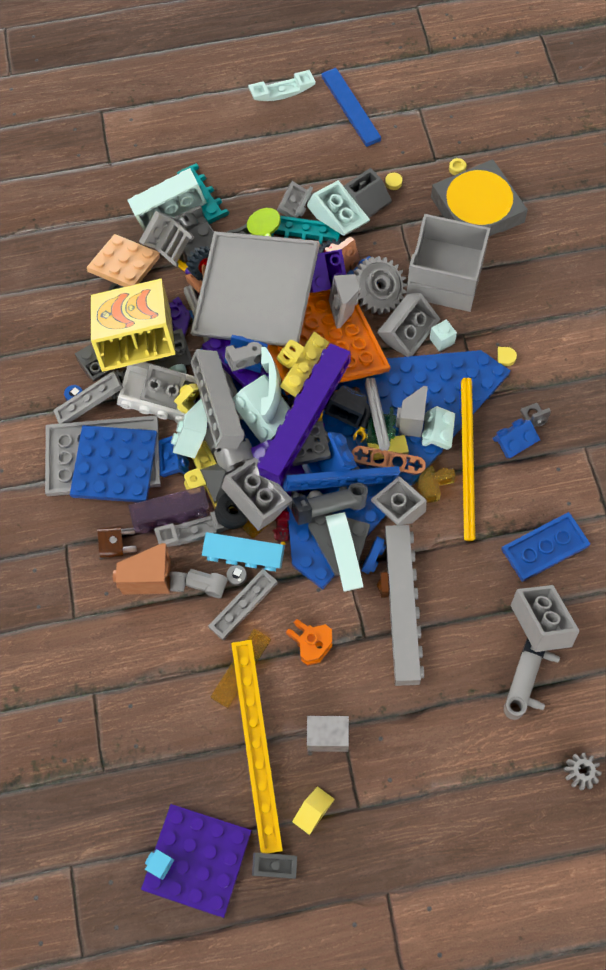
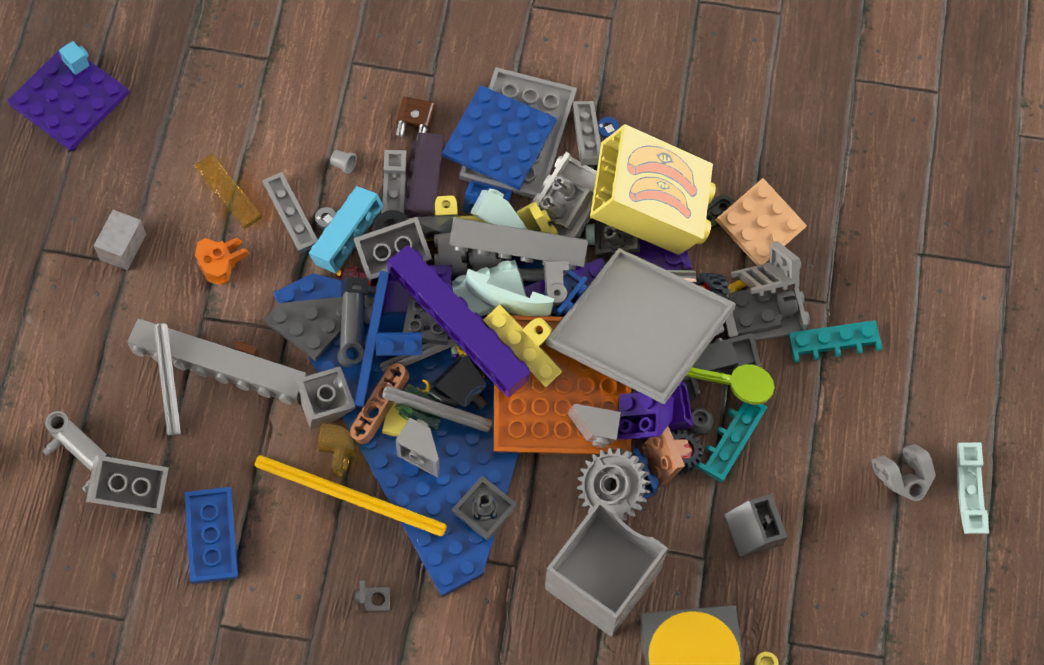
camera: 105 degrees right, 0 degrees up
(145, 572) = (358, 129): nougat slope -> none
(169, 197) = (822, 286): light aqua brick -> none
(211, 584) = (326, 190): light grey piece -> none
(256, 748) = (144, 175): yellow plate -> none
(274, 865) = (26, 153): dark grey hinge -> none
(294, 200) = (780, 439): light grey bracket -> none
(295, 117) = (918, 460): none -> light grey piece
(313, 810) = (61, 208): light yellow slope -> none
(337, 209) = (740, 480): light aqua slope -> none
(344, 551) = (294, 314): light aqua slope -> none
(351, 107) = (913, 567): blue tile -> none
(376, 549) = (276, 347): blue plate -> none
(393, 181) = (771, 573): light yellow tile -> none
(409, 324) = (549, 503): light grey slope -> none
(437, 632) = (167, 379): none -> light grey axle
(438, 355) = (484, 505): none -> dark grey plate
(438, 428) = (396, 474): light aqua bracket -> none
(443, 335) = (518, 534): light aqua brick -> none
(506, 356) = (464, 600): light yellow tile -> none
(516, 437) = (353, 562): blue bracket -> none

